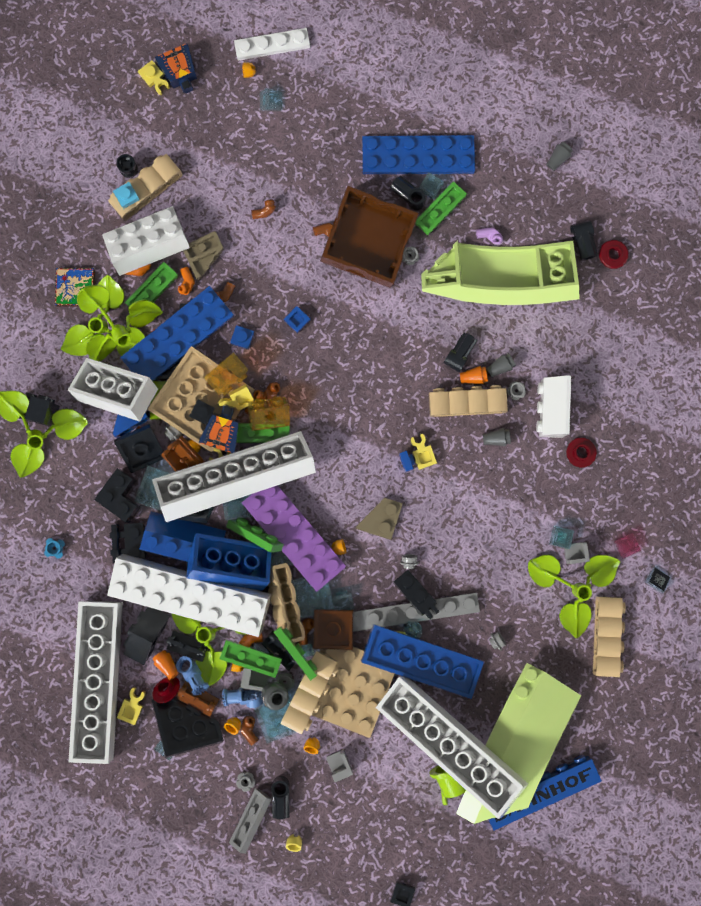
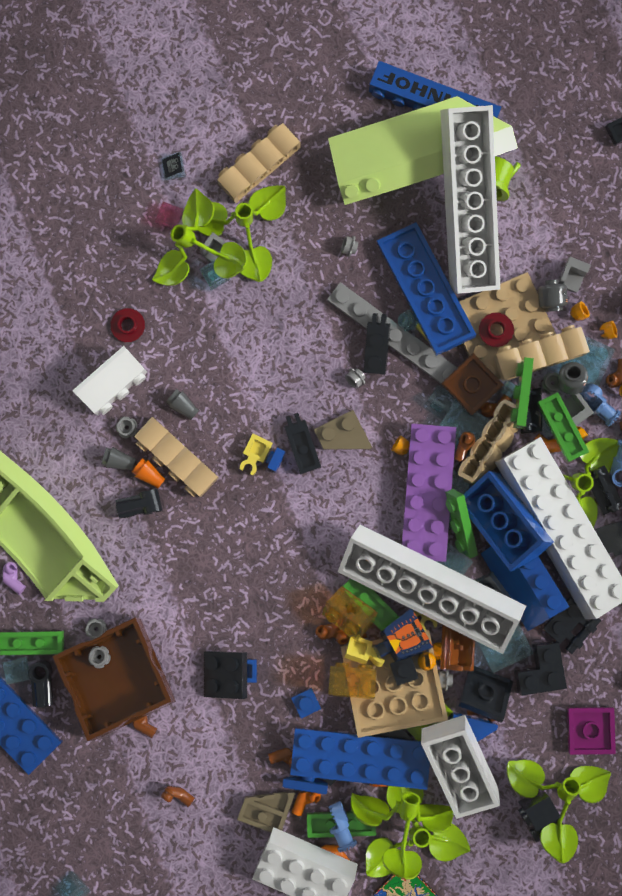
camera: 130 degrees left, 0 degrees up
(55, 490) = (591, 730): none -> magenta plate
(148, 284) = (341, 829): none -> medium blue connector
(191, 292) = (305, 784): none -> blue plate
(197, 428) = (421, 661): none -> light orange hinge
(281, 752) = (610, 330): none -> light orange hinge
(300, 586) = (466, 441): none -> dark orange arm
(306, 305) = (225, 674): none -> black plate
(338, 738) = (552, 295): none -> dark grey head
(352, 689) = (488, 337): none -> dark red piece
(391, 236) = (93, 656): none -> light grey plate
(400, 486) = (302, 445): none -> black hinge
(591, 516) = (197, 213): none -> lime plant

